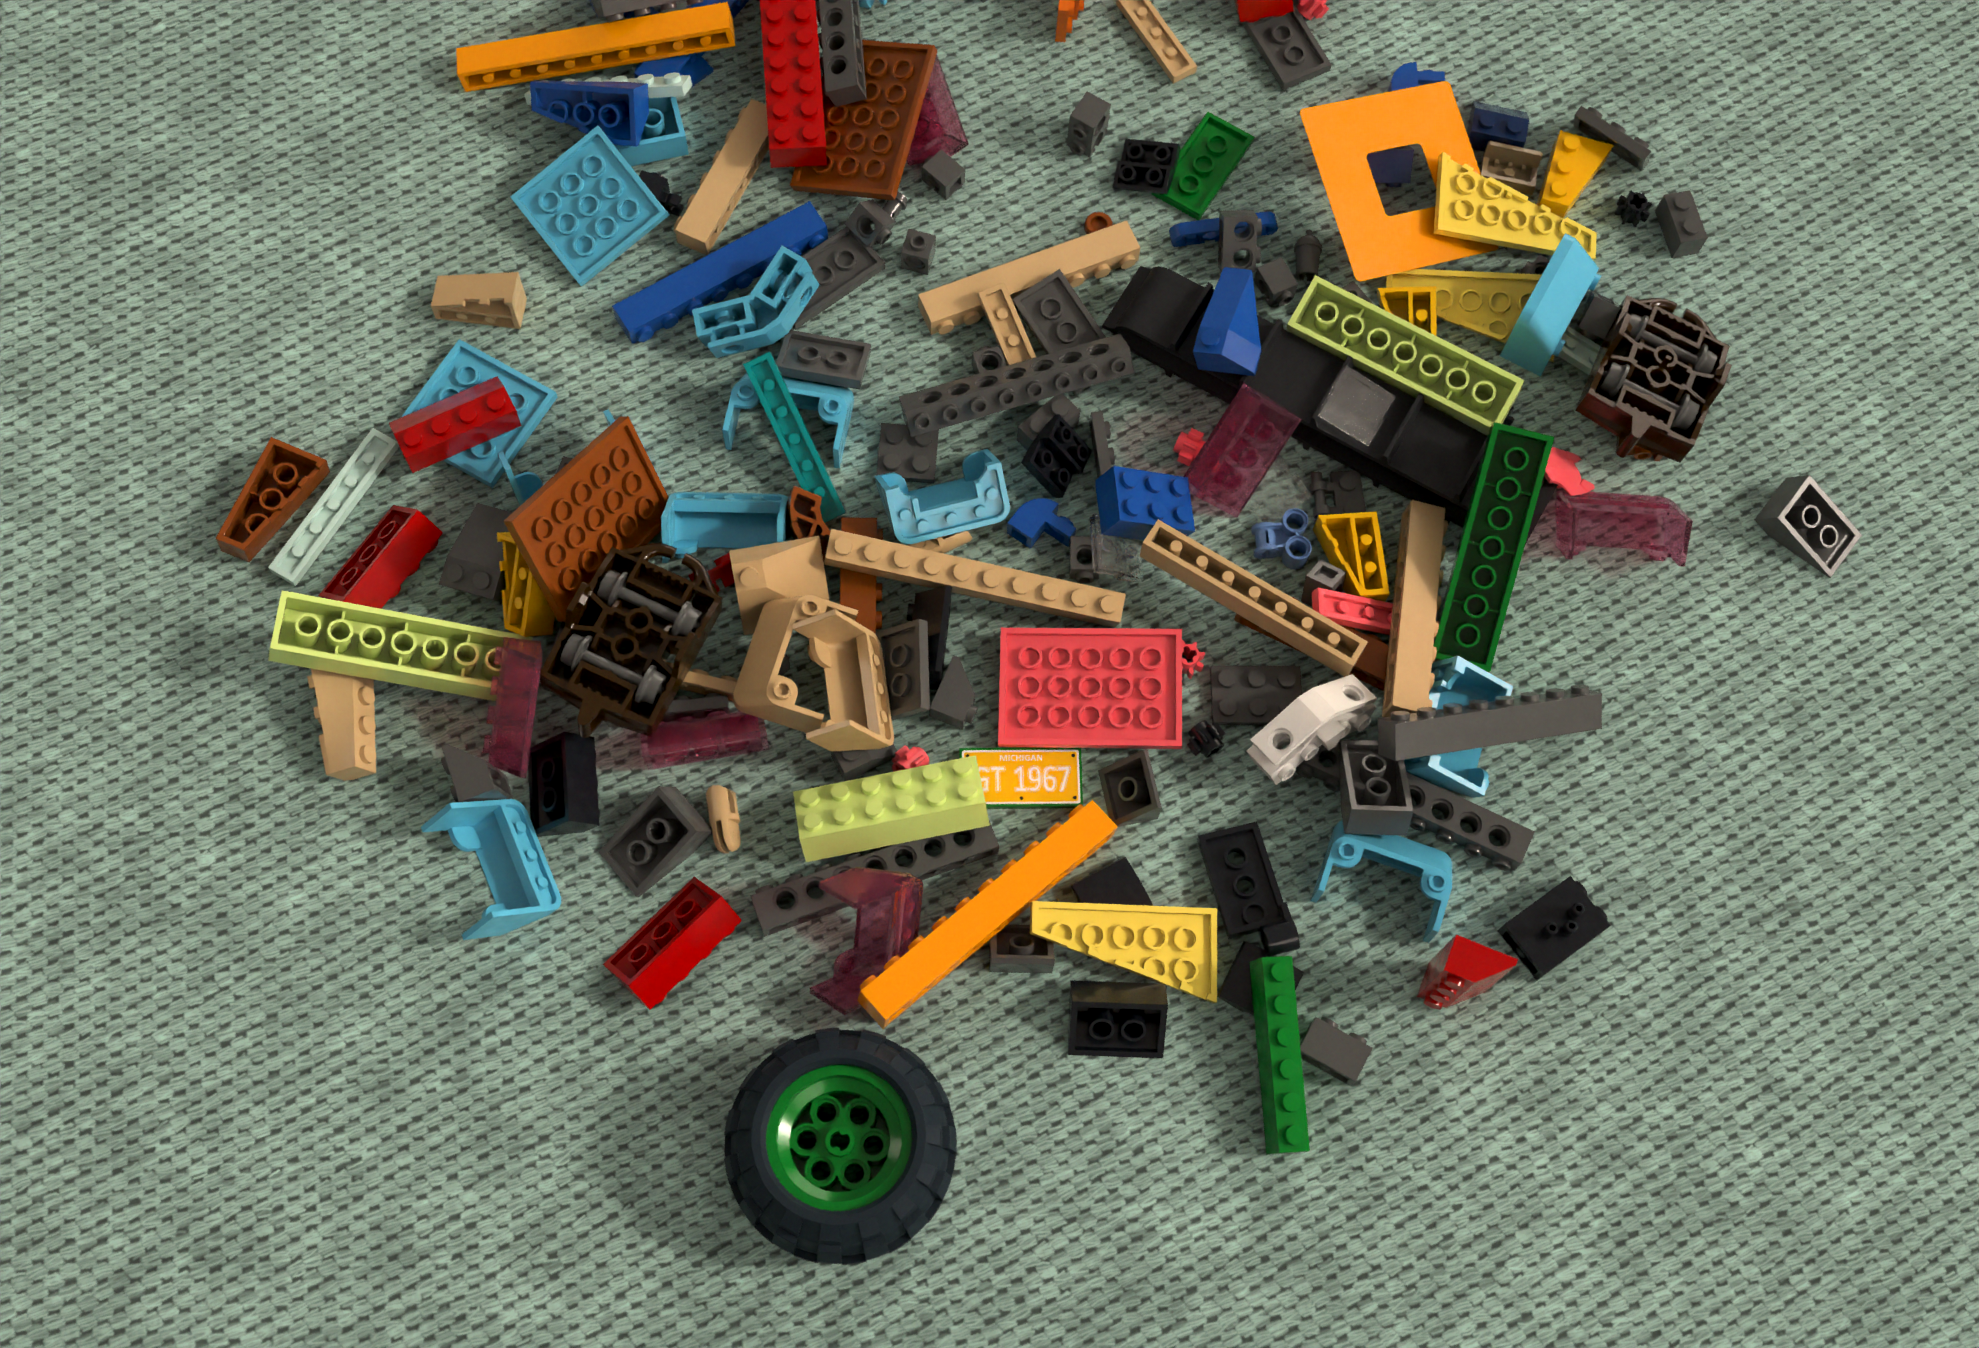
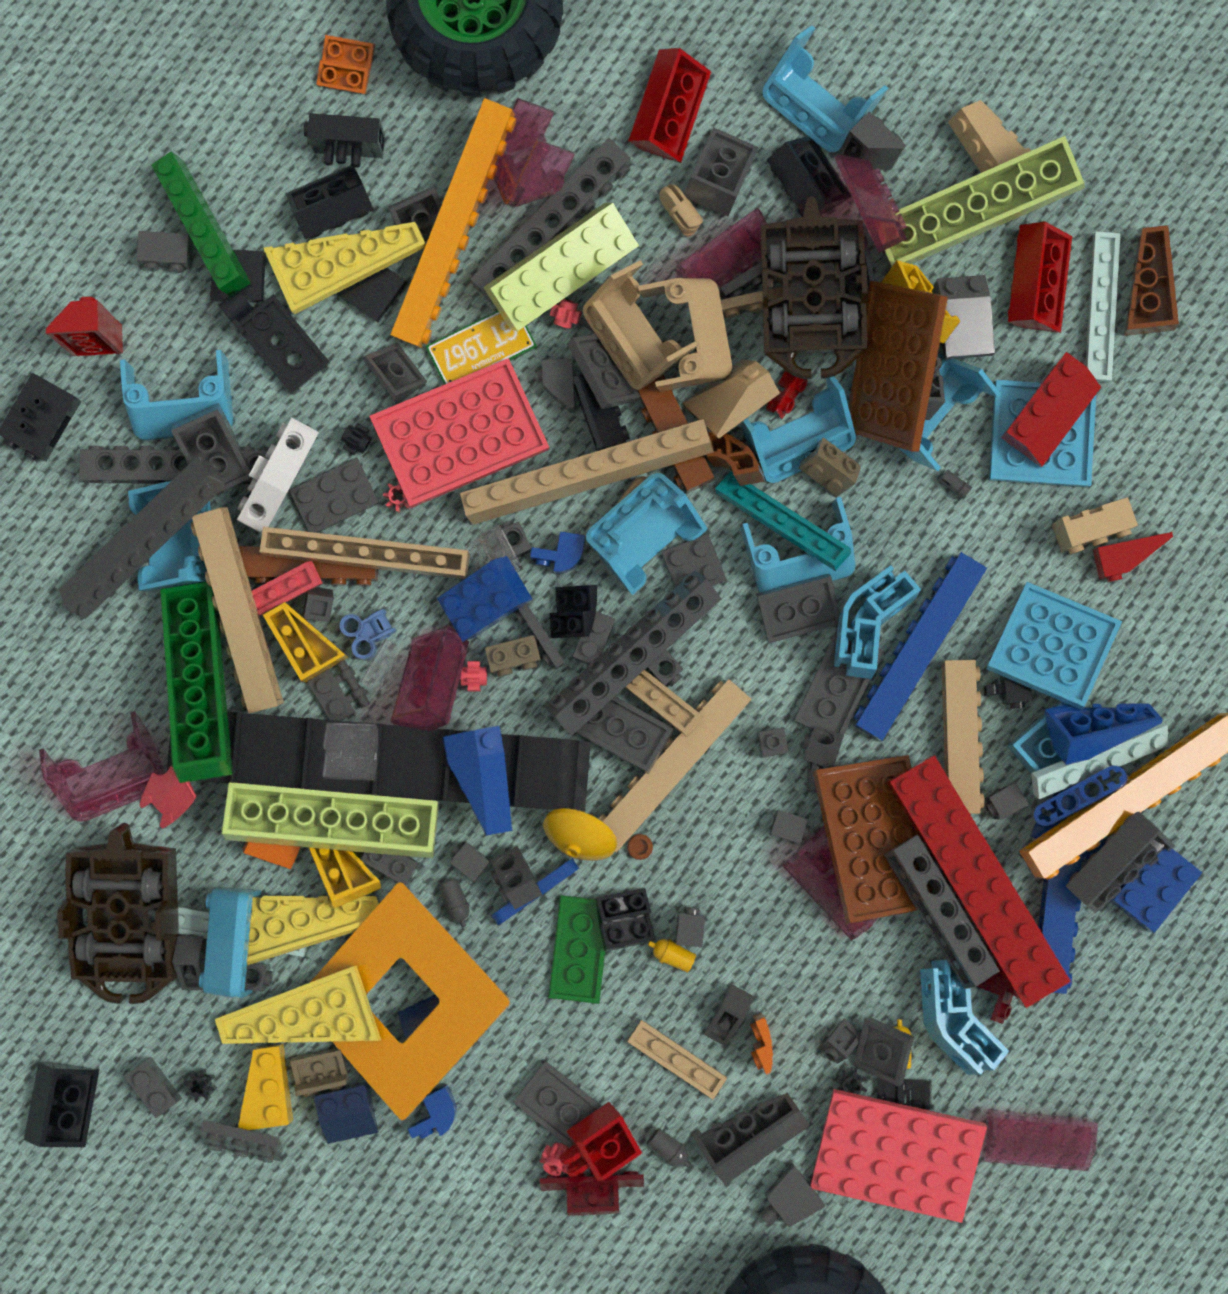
camera: 160 degrees right, 15 degrees up
(459, 258) = (1120, 558): none -> red slope
(591, 400) = (955, 484): none -> dark grey pin
(648, 59) = (1082, 799): none -> blue beam
(713, 471) = (831, 468): none -> dark tan bracket
(719, 103) = (1005, 801): none -> dark grey brick
(1022, 1178) = (345, 64): none -> orange slope
(1066, 1074) = (345, 137): none -> black piece
(1085, 46) = (729, 1015): none -> dark grey slope
(1120, 122) = (674, 955): none -> yellow piece
(1141, 442) = (512, 655): none -> dark tan bracket
(1159, 241) = (579, 834): none -> yellow dish
(1781, 250) = (61, 1105): none -> black slope

